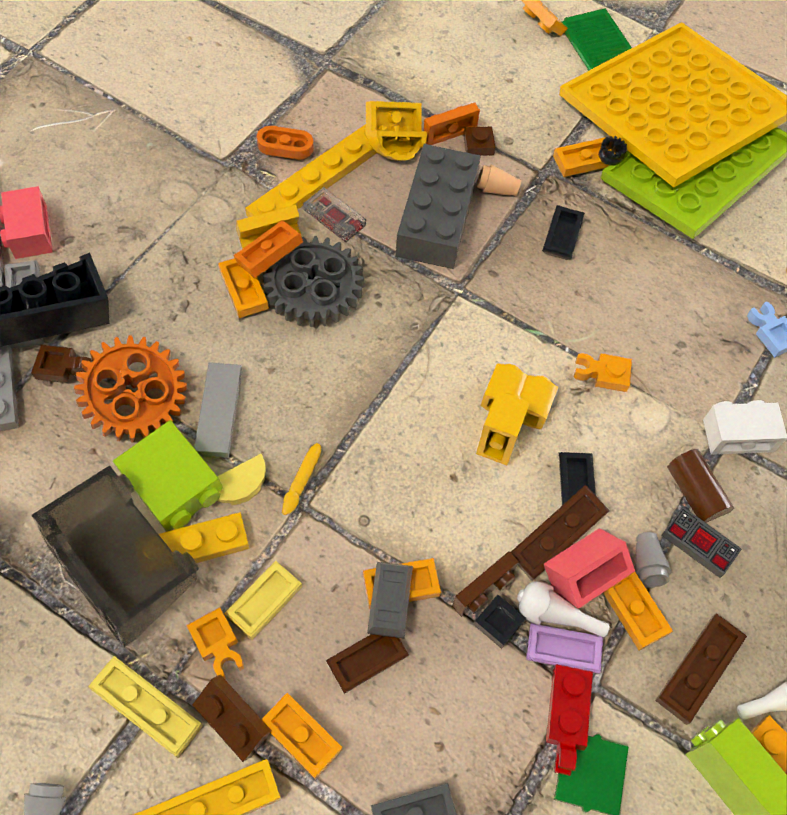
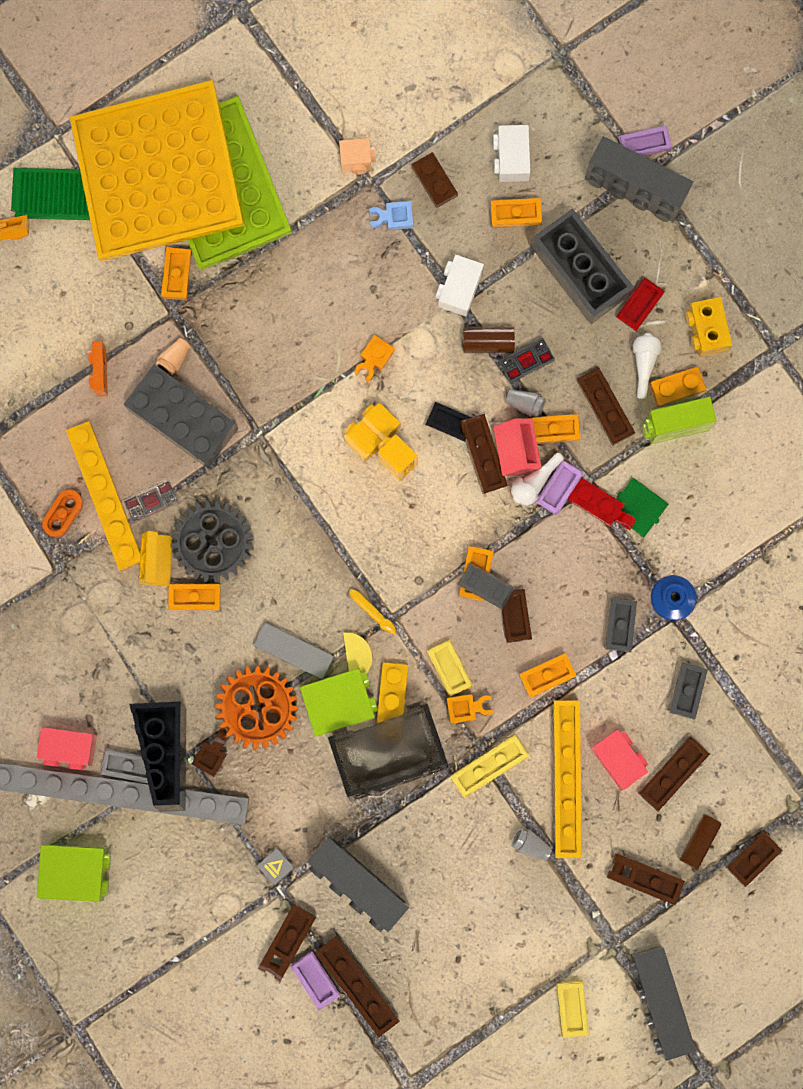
camera: 60 degrees left, 20 degrees up
(231, 718) = (520, 714): reddish brown plate -> none
(268, 248) = (178, 566): orange plate -> none
(395, 129) = (91, 418): yellow slope -> none
(475, 594) = (497, 509): reddish brown plate -> none
(479, 140) = (122, 351): reddish brown plate -> none
(499, 621) = (526, 521): black plate -> none
(563, 232) = (241, 327): black tile -> none
(616, 146) = (191, 258): black bush -> none

